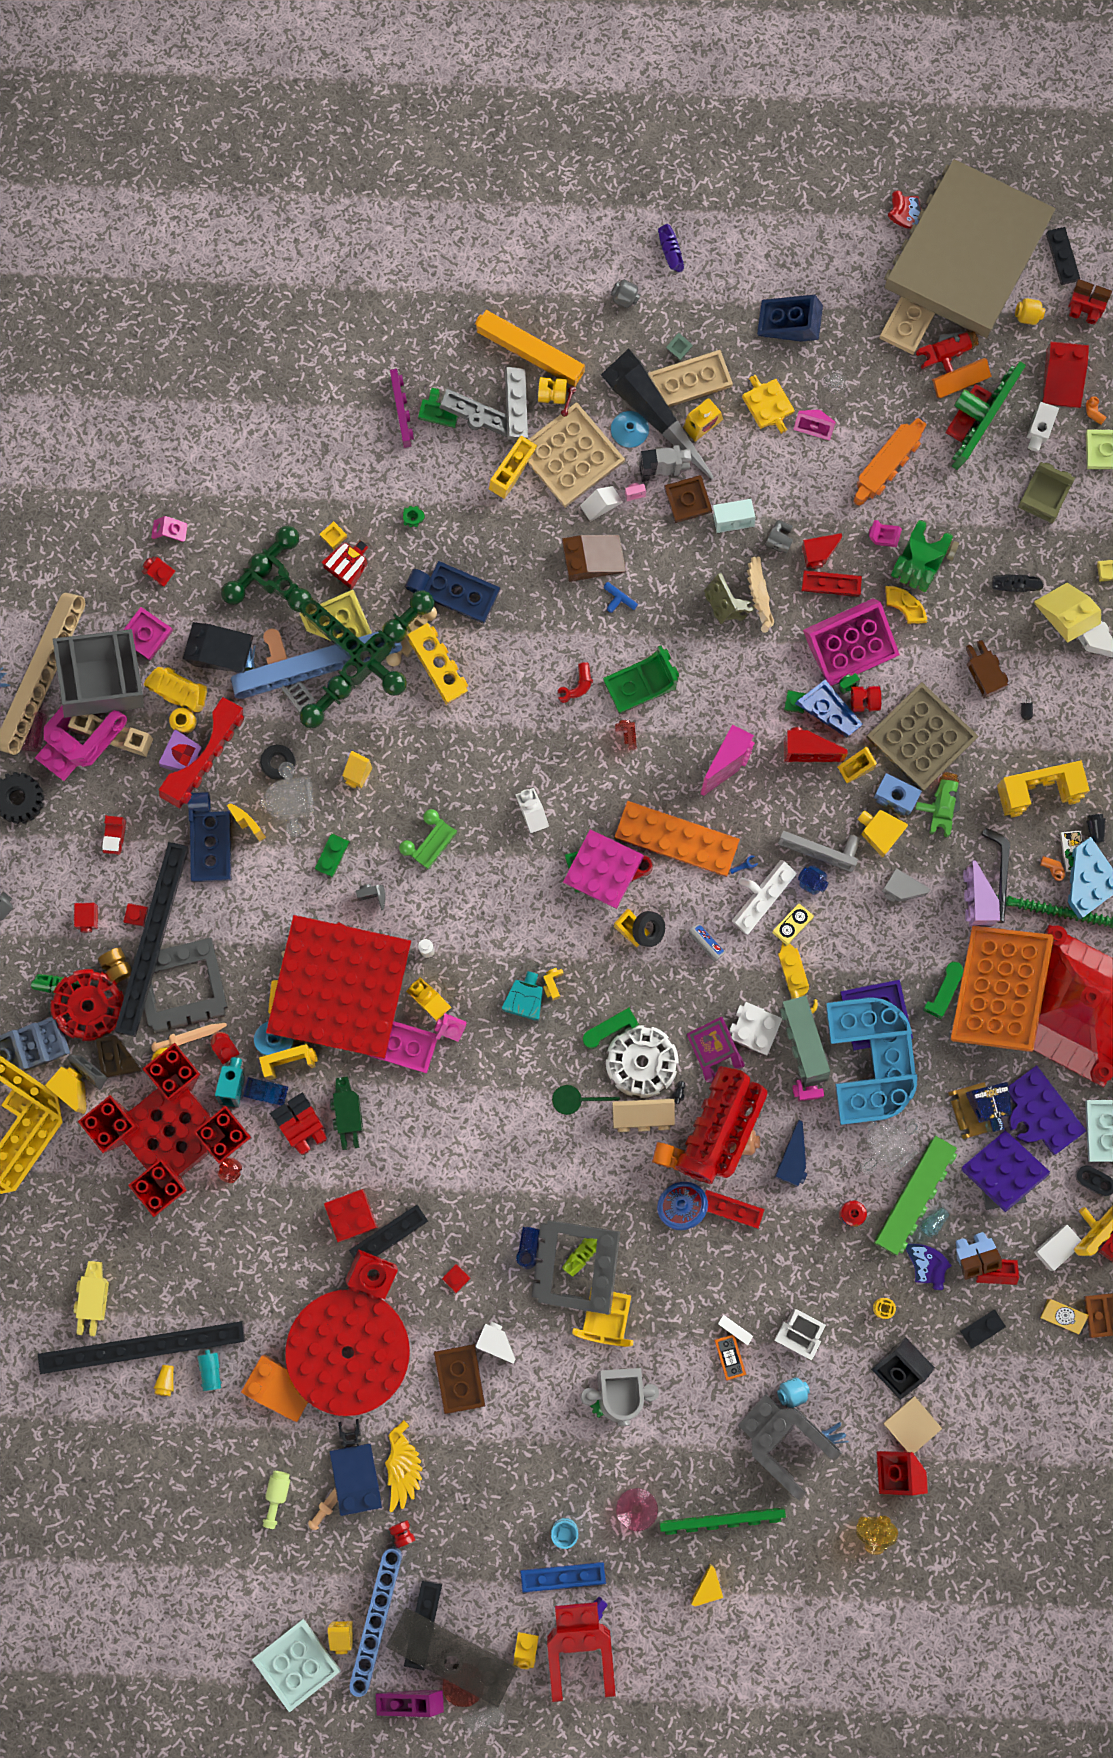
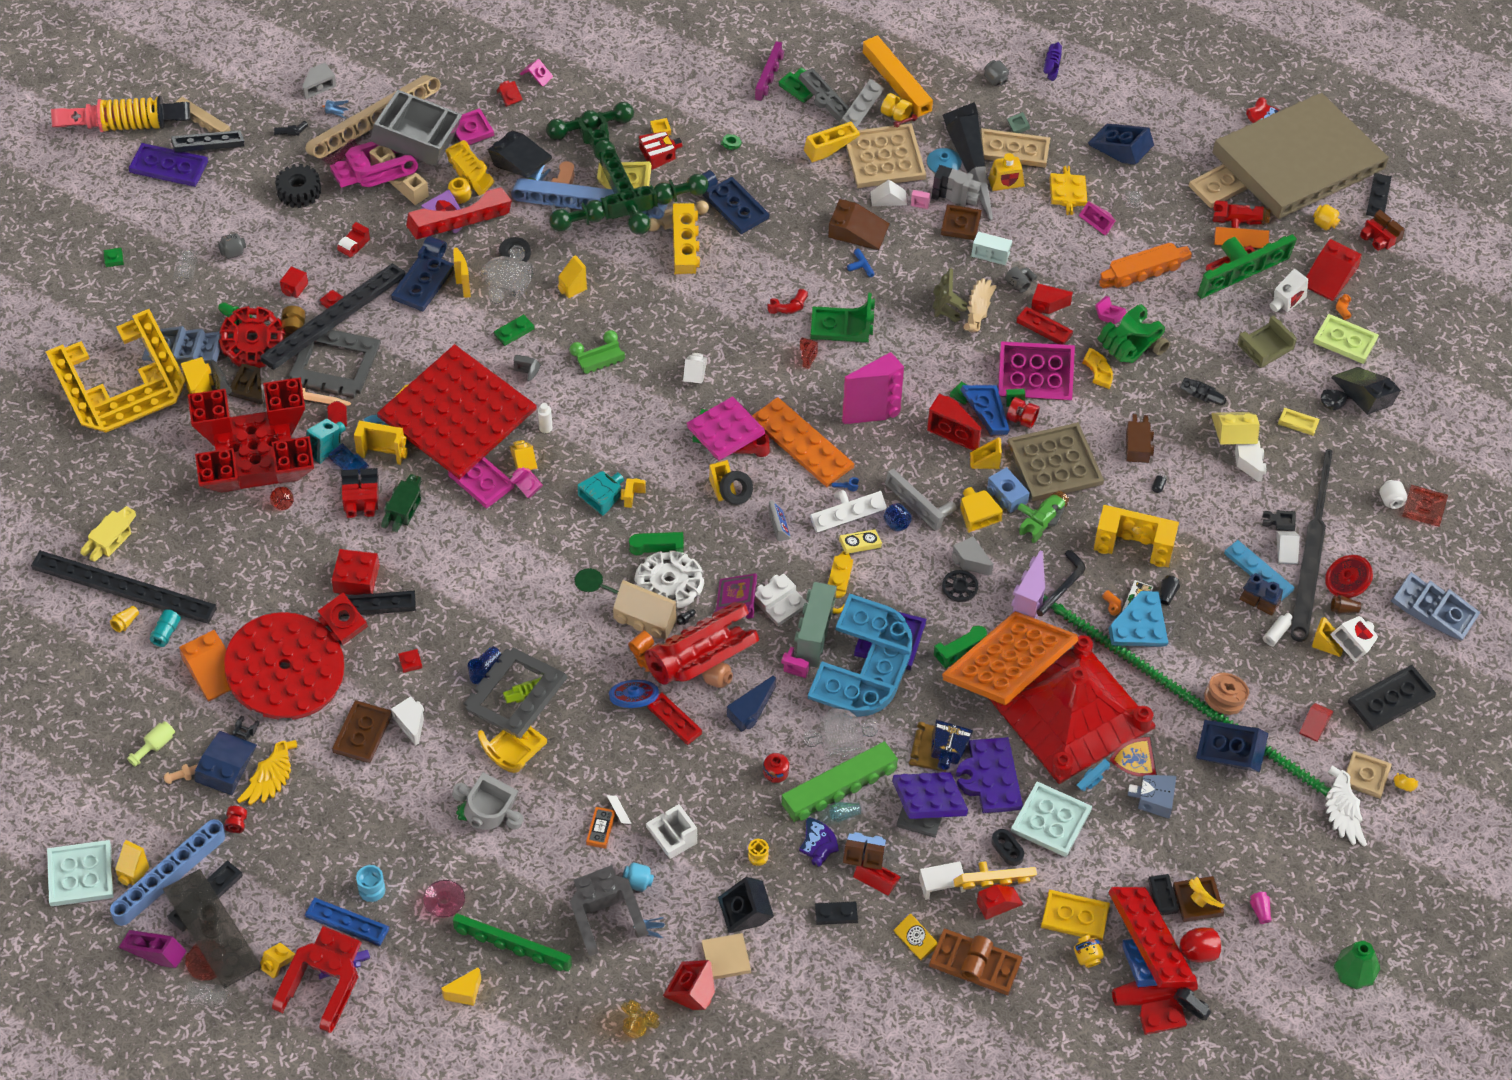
camera: 25 degrees right, 25 degrees down
(907, 922) = (960, 585): none -> black wheel

